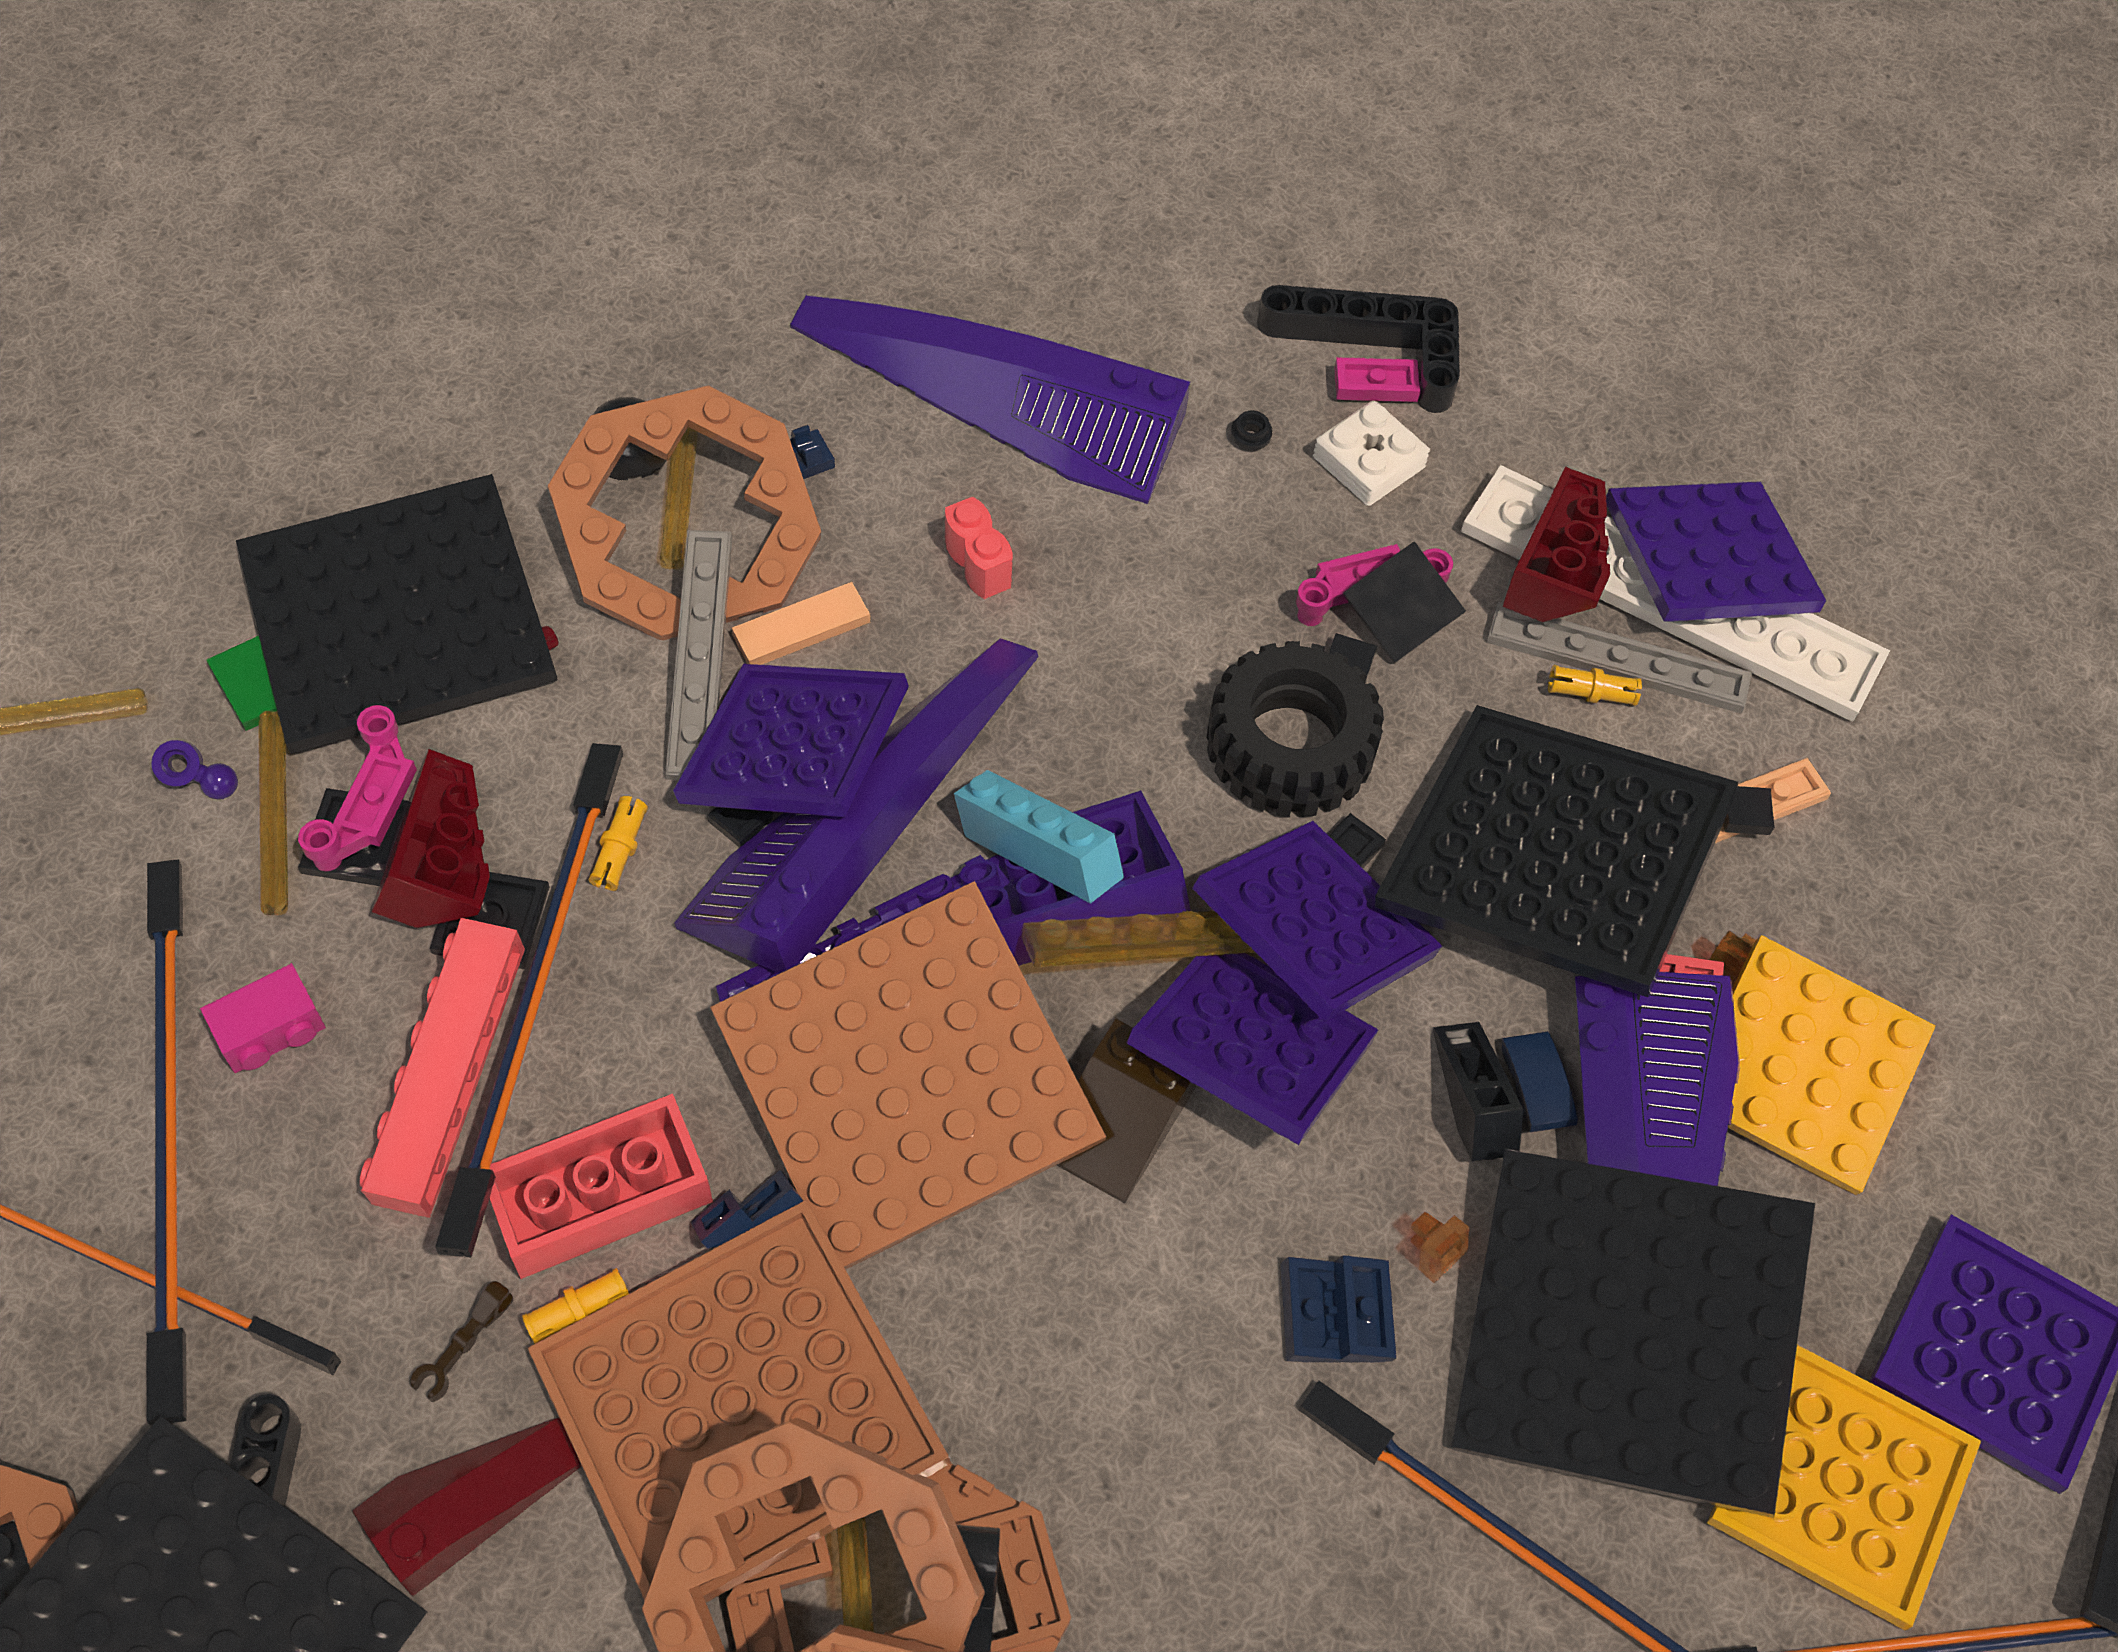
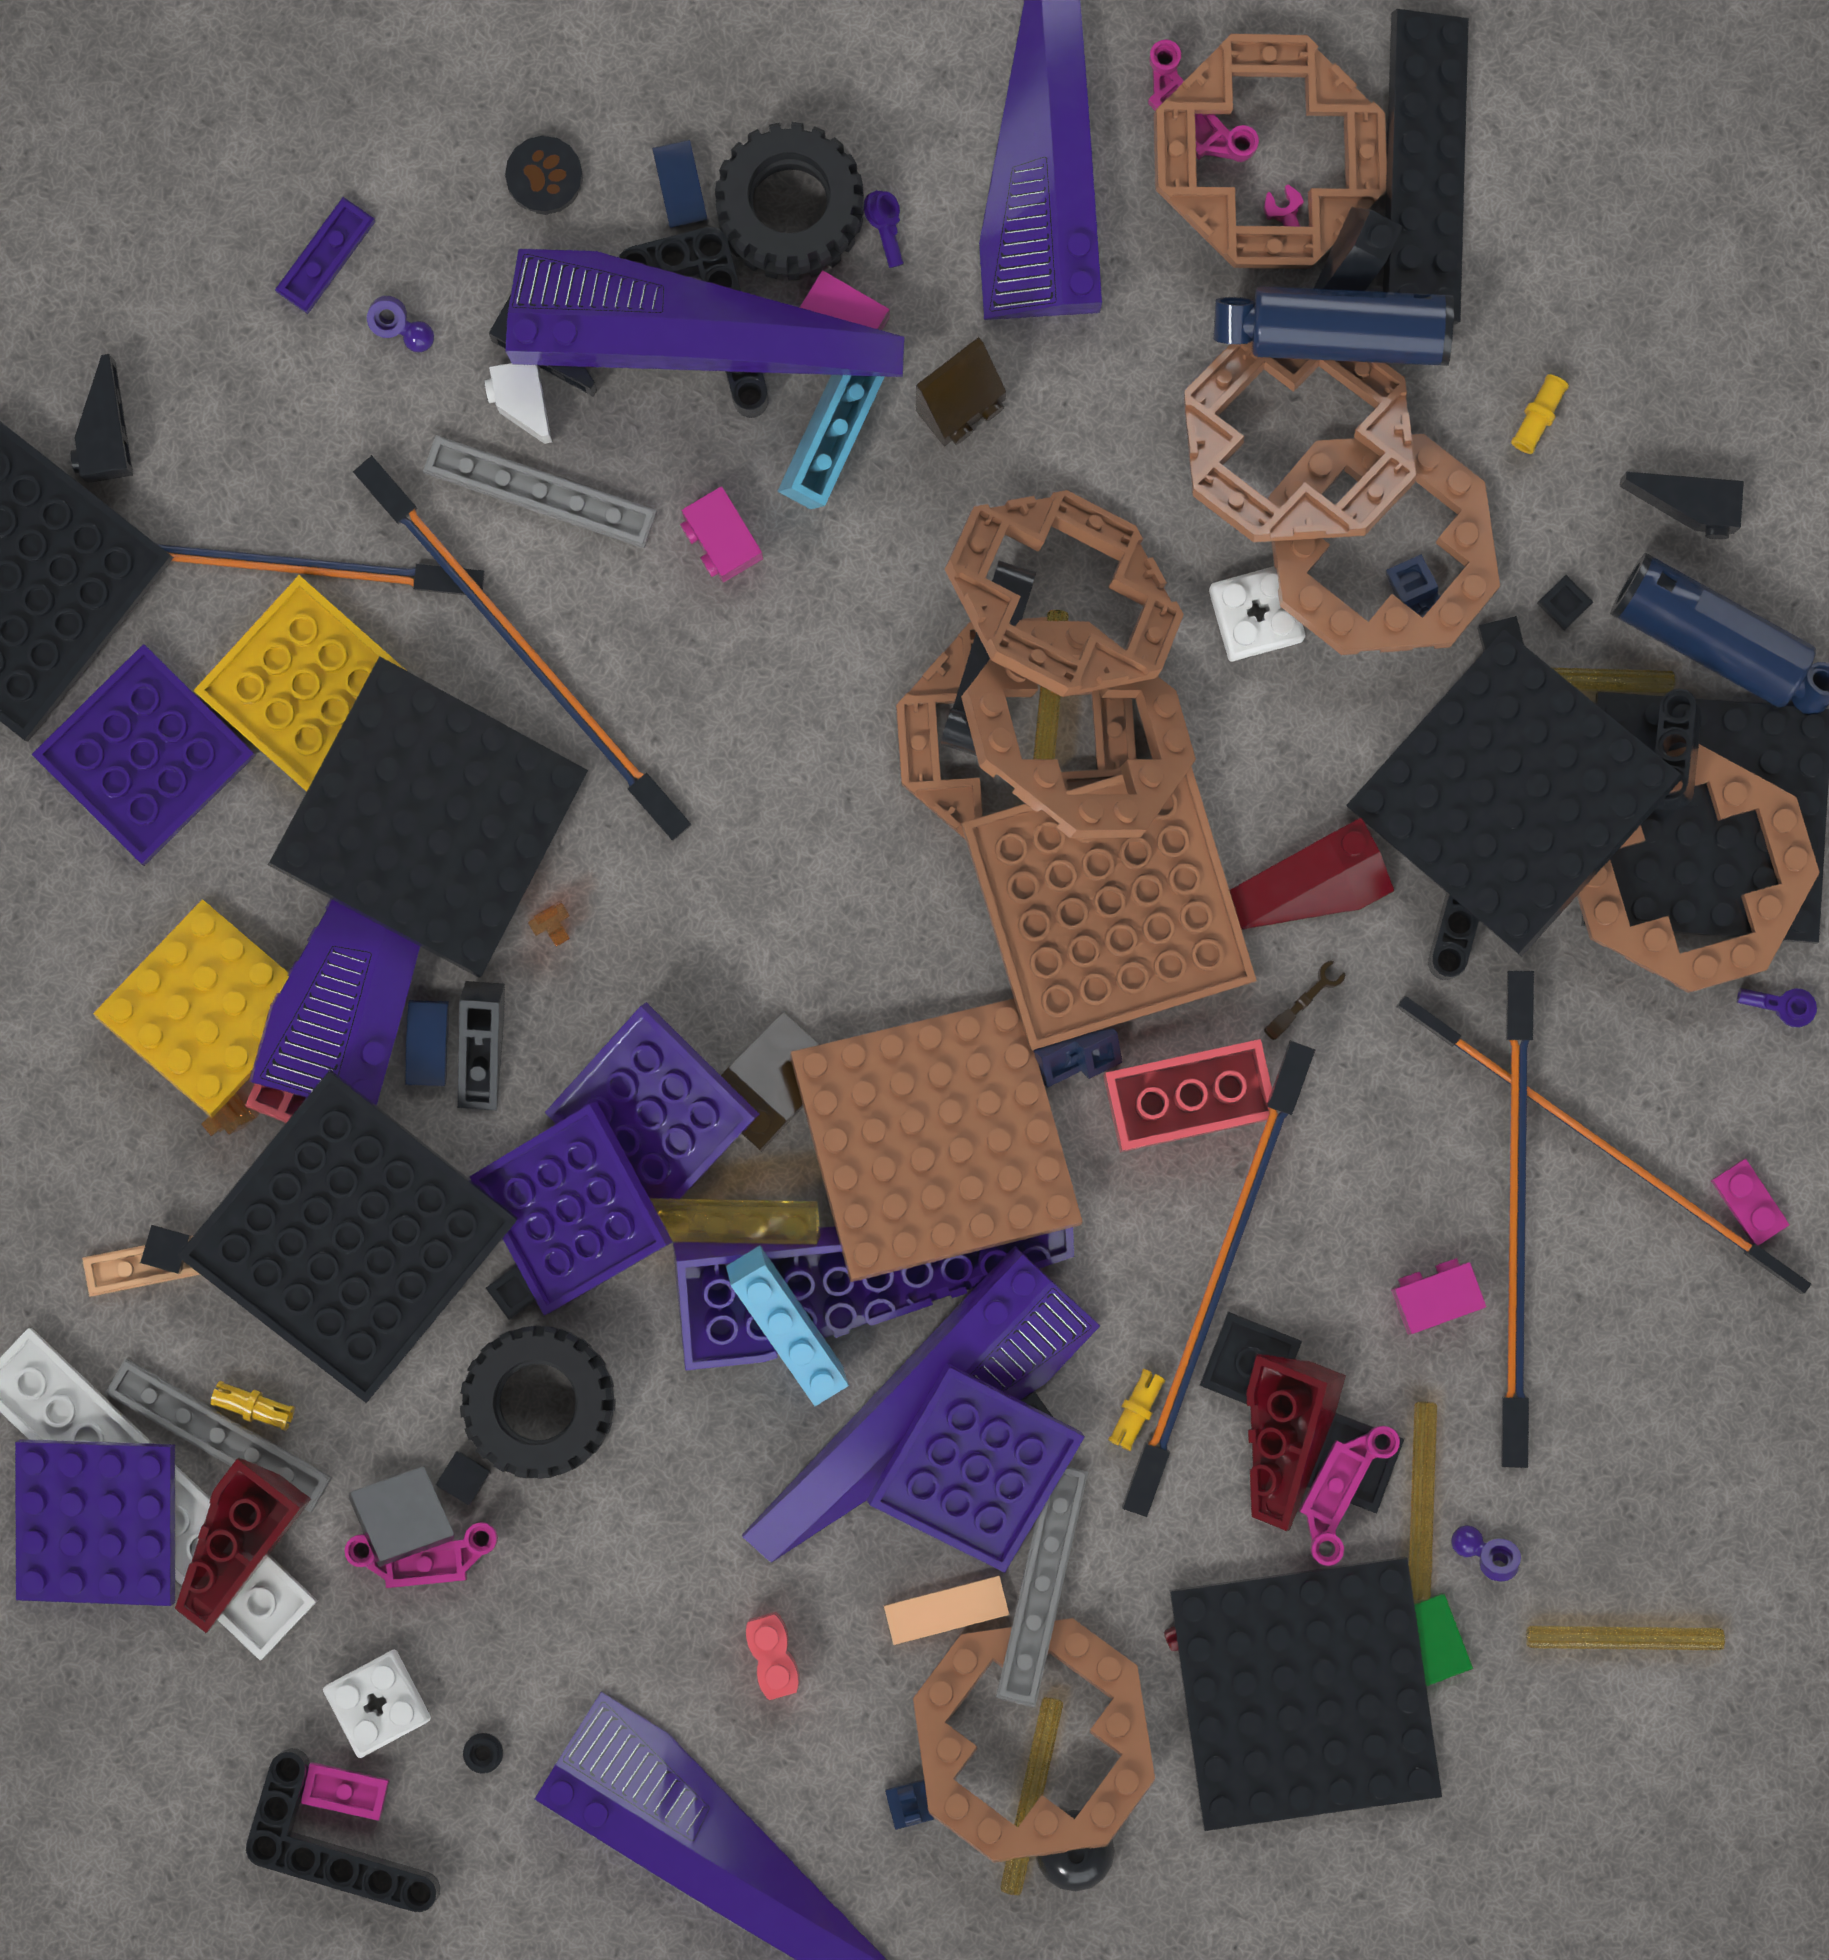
camera: 165 degrees left, 25 degrees up
(443, 1068) = (1297, 1225): coral brick -> none
(574, 1305) = (1217, 1009): yellow pin -> none
(1338, 1310) = (642, 891): dark blue slope -> none

